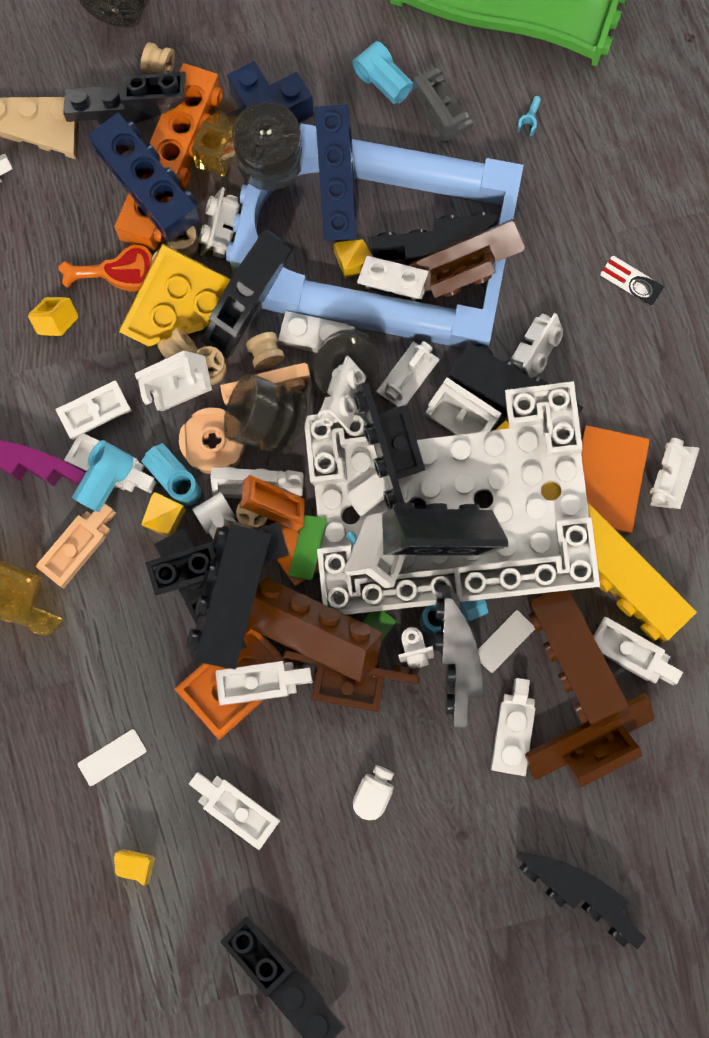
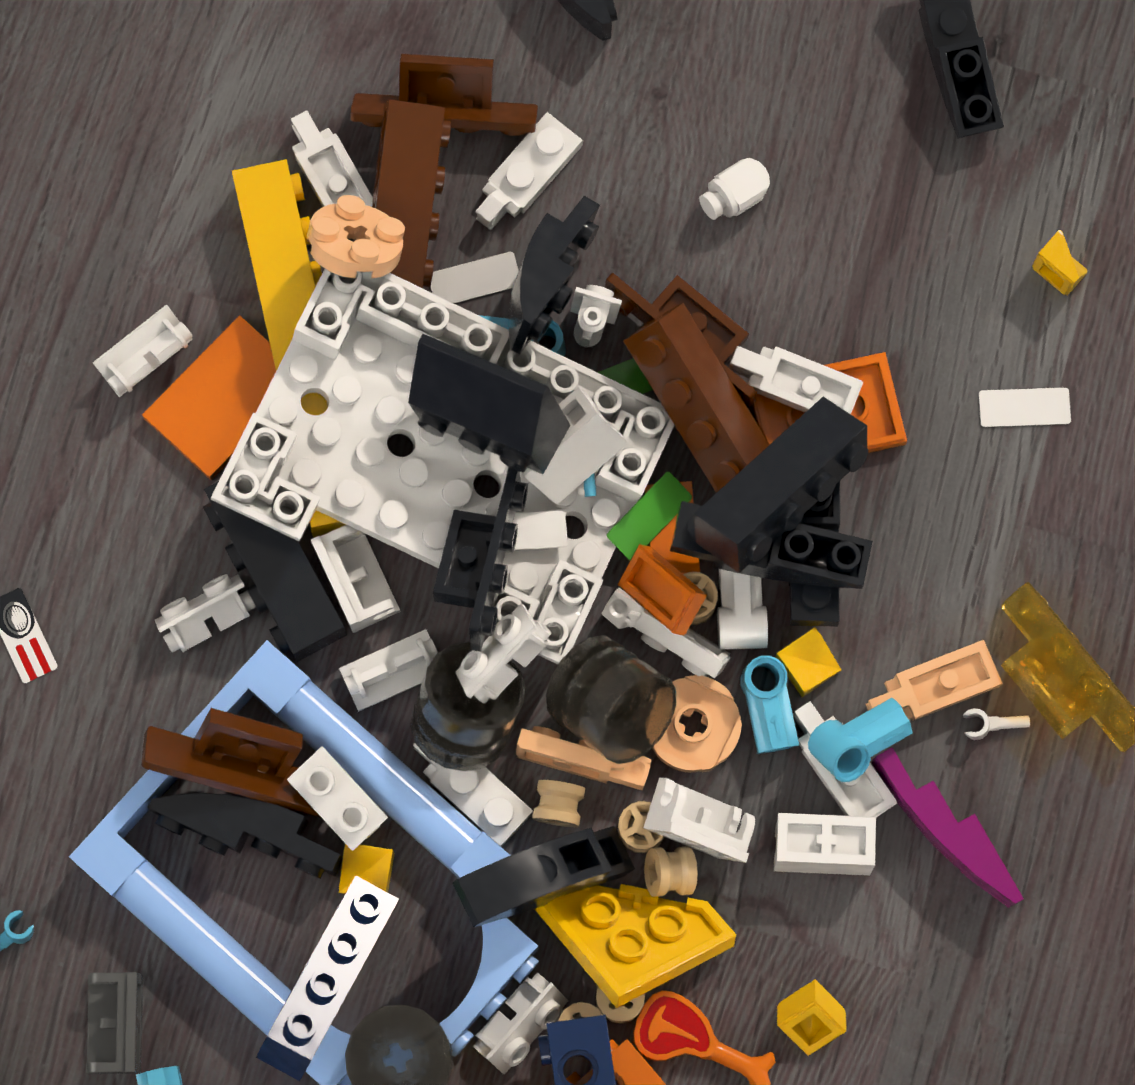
camera: 150 degrees left, 0 degrees up
(32, 542) = (994, 723): none -> white hand
(235, 809) = (909, 262): white hinge -> none
(598, 614) = (376, 235): none -> light nougat plate

